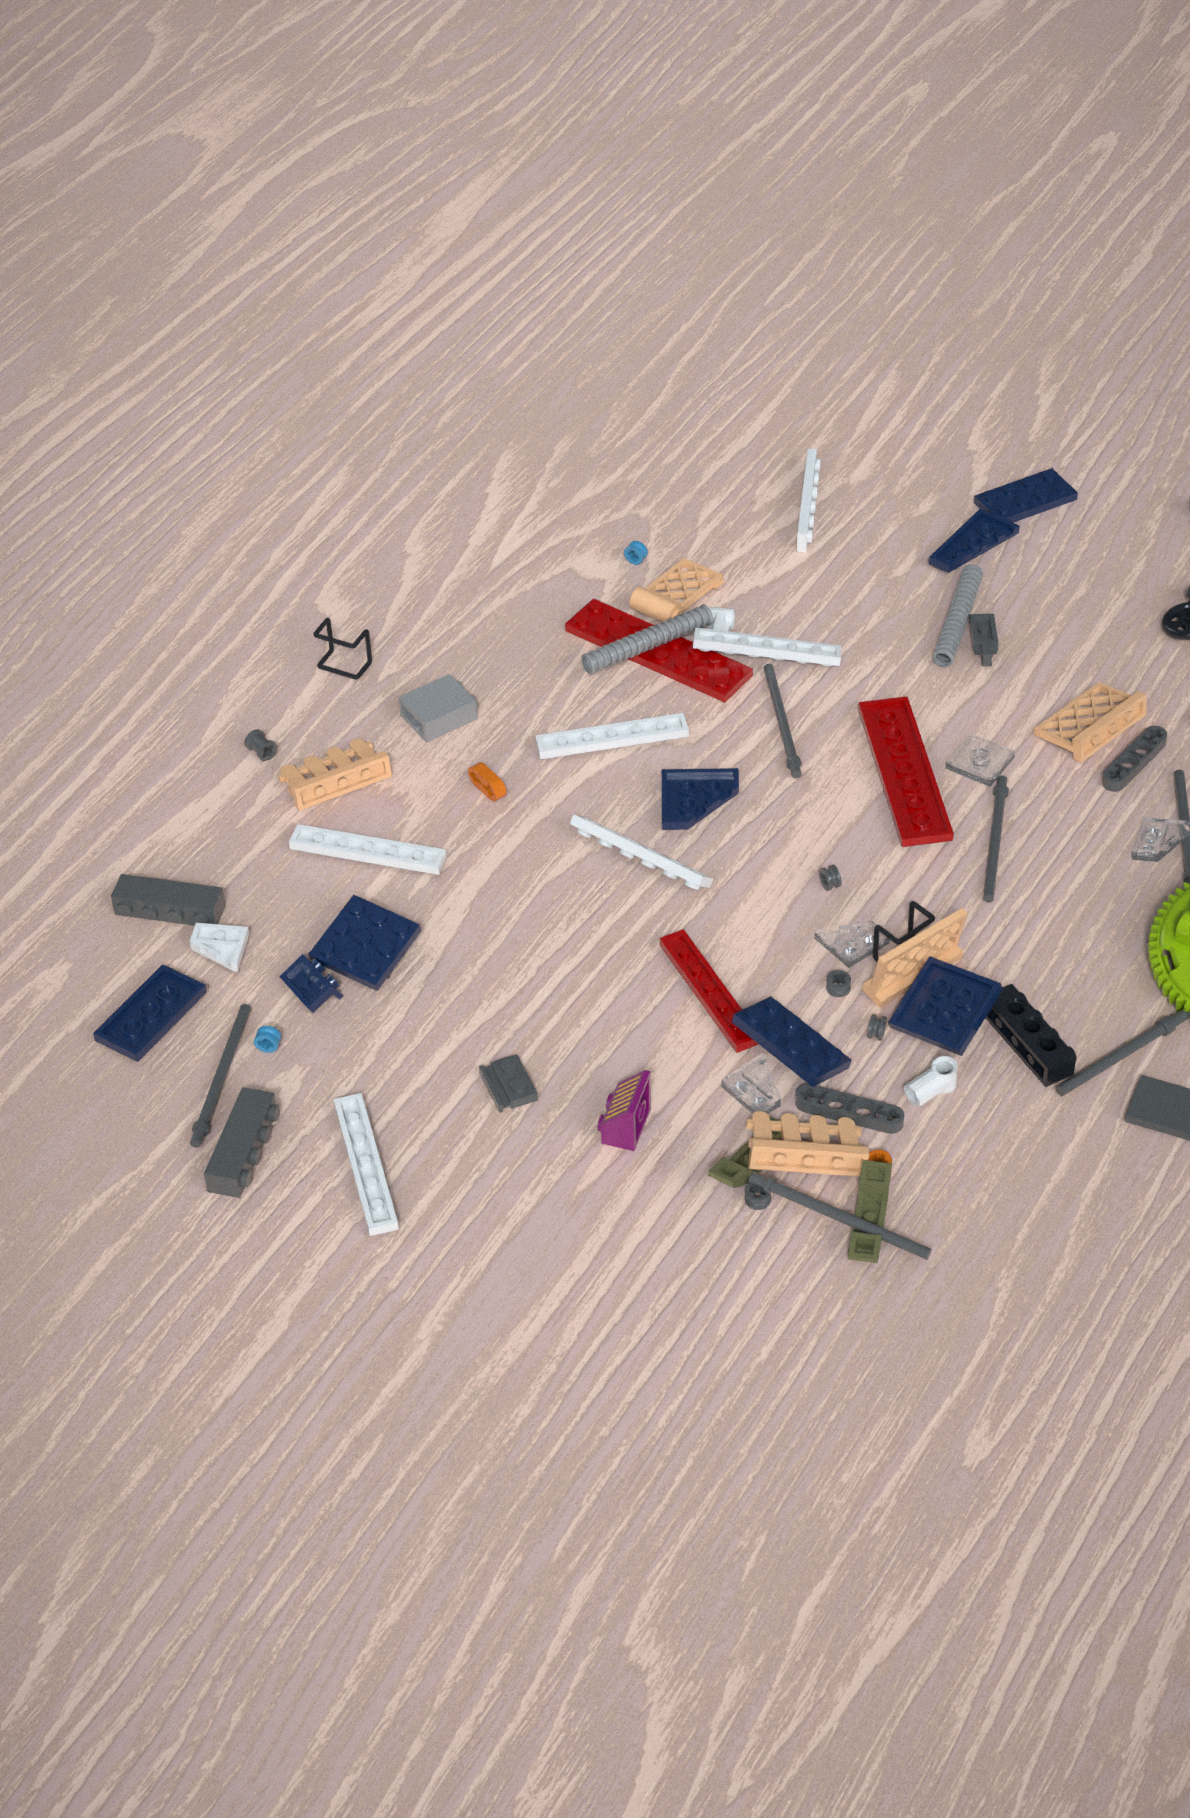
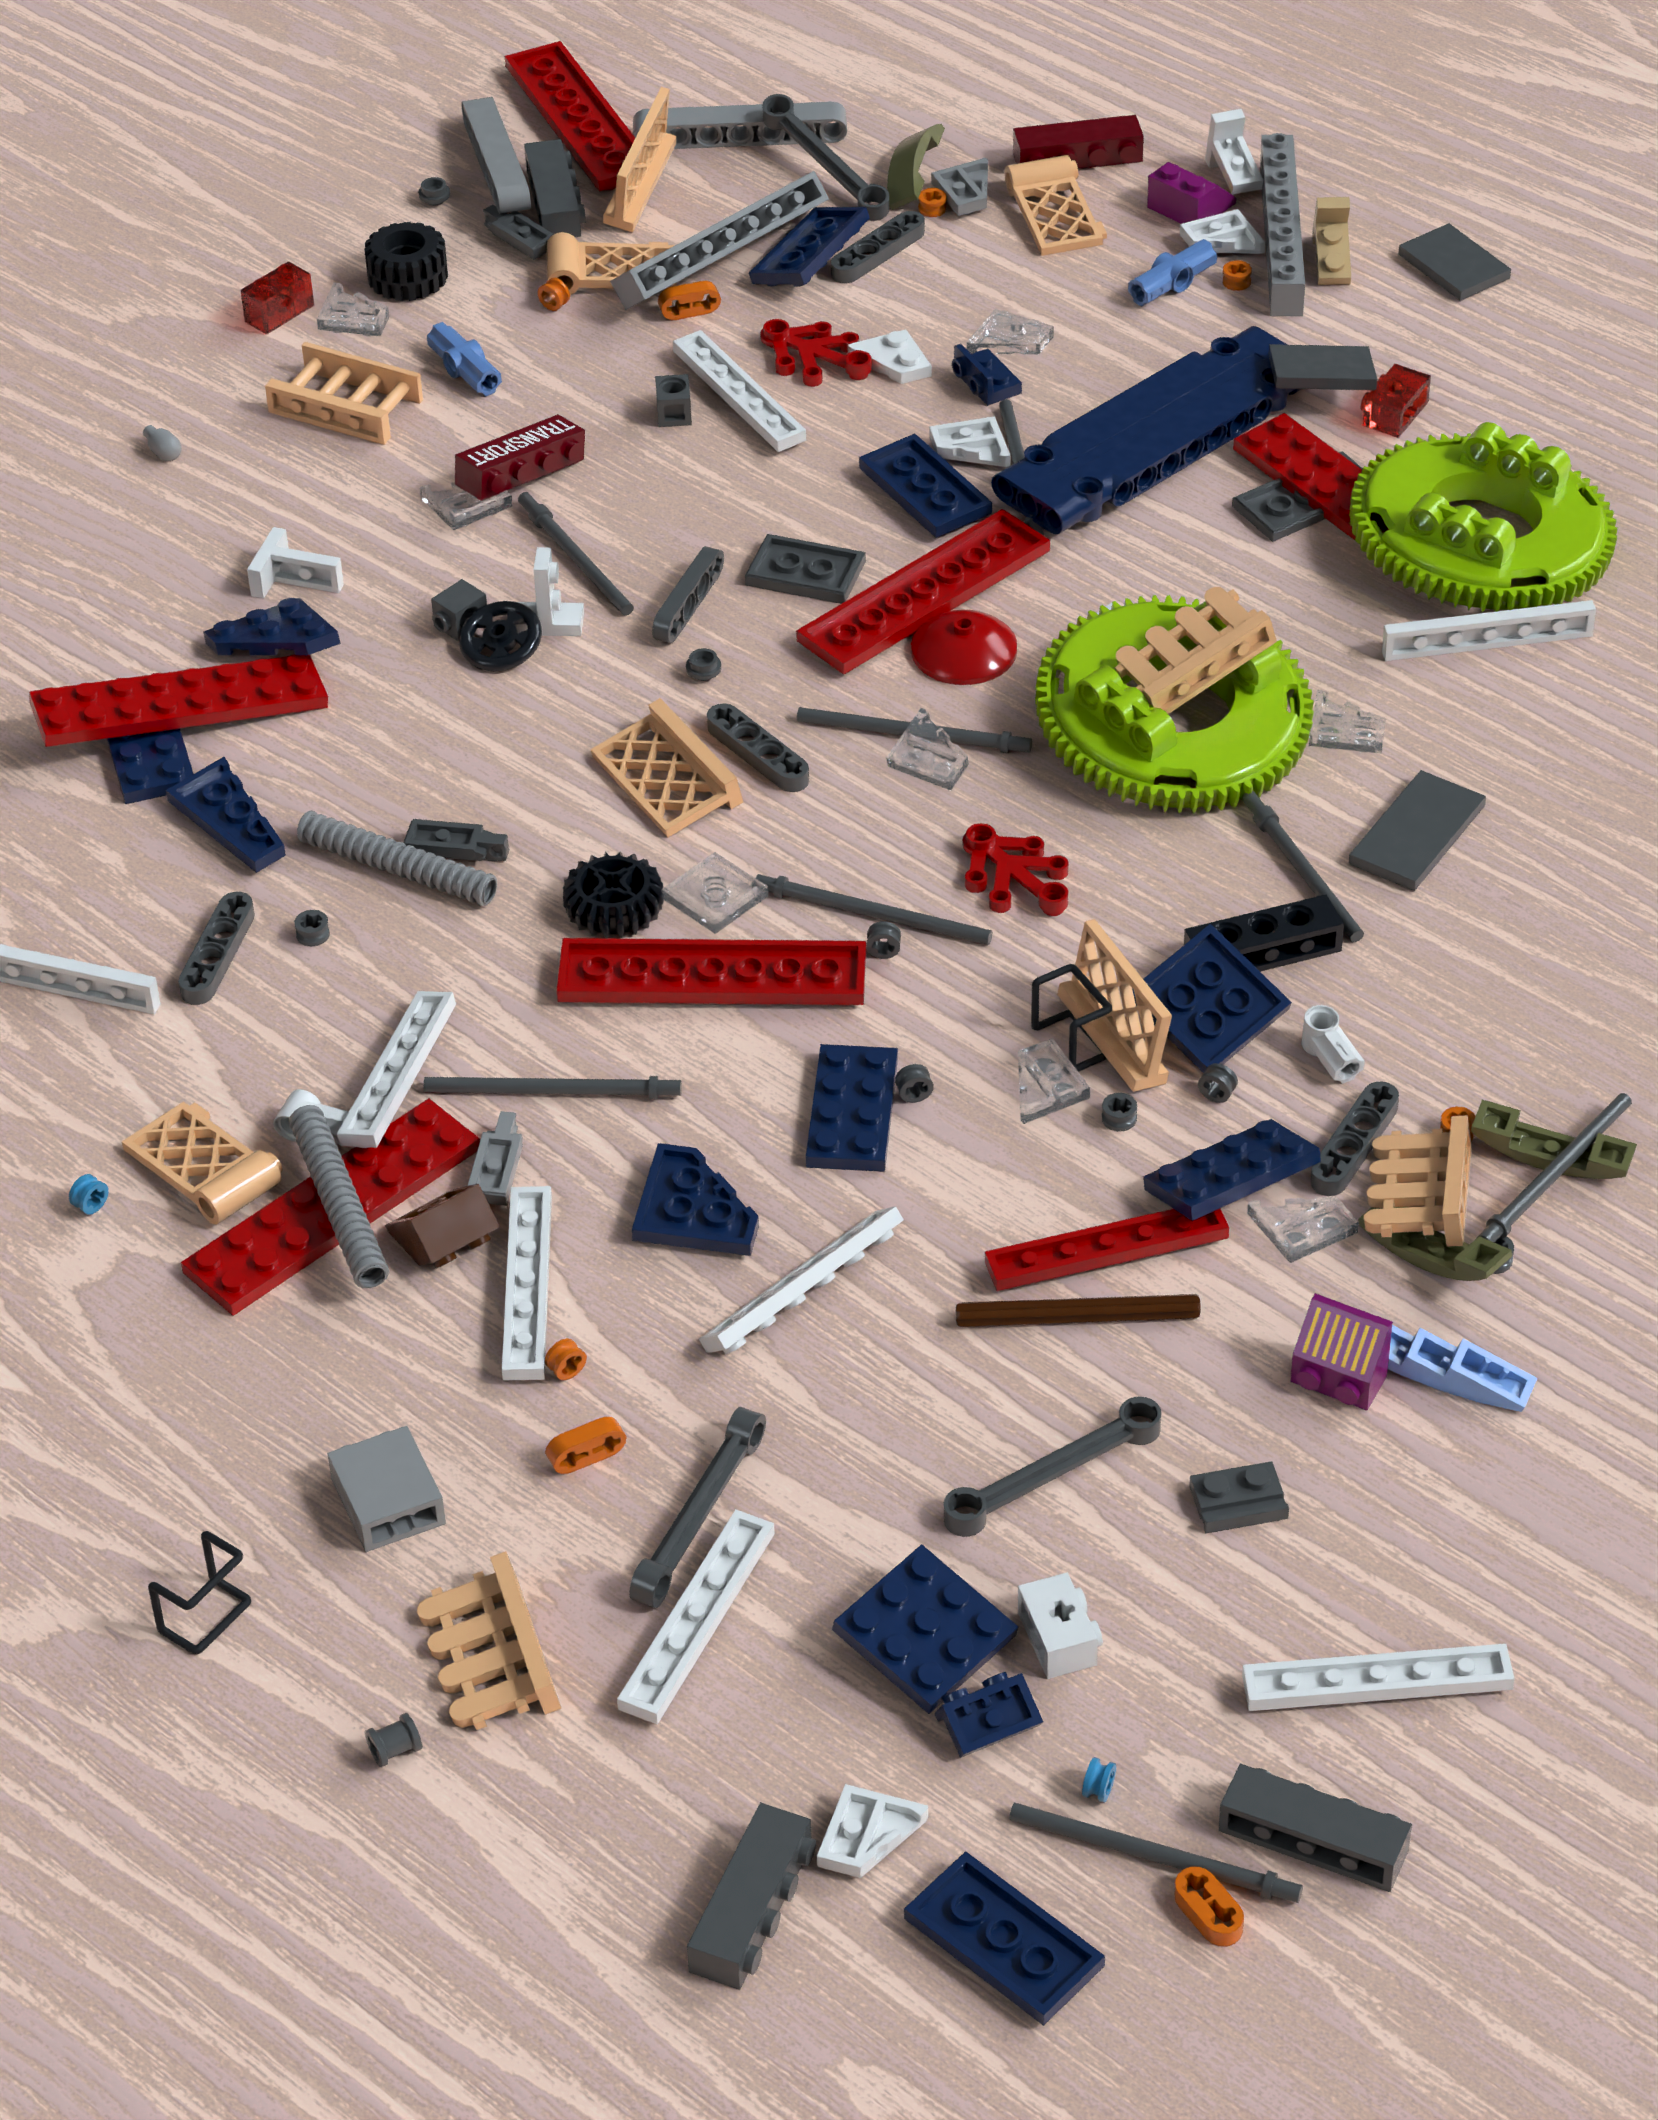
camera: 80 degrees left, 0 degrees up
(183, 1103) = (1203, 1910): none -> orange beam
(381, 1004) = (1059, 1625): none -> white brick
(498, 843) = (654, 1575): none -> dark grey piece
(515, 990) = (1052, 1466): none -> dark grey piece
(552, 762) = (565, 1359): none -> orange bush
(642, 1176) = (1459, 1370): none -> light blue slope
(645, 692) = (445, 1225): none -> reddish brown slope
(651, 986) = (1078, 1310): none -> reddish brown axle
(709, 705) = (498, 1159): none -> light grey hinge
(804, 854) = (852, 1108): none -> dark blue plate
(883, 561) = (223, 948): none -> dark grey beam
(887, 595) = (312, 928): none -> dark grey bush
(958, 712) = (613, 894): none -> black gear
(961, 843) = (887, 931): none -> dark grey bush
(1062, 496) = (177, 699): none -> red plate
(1080, 880) = (983, 842): none -> red plant
(1149, 524) = (263, 632): none -> dark blue plate

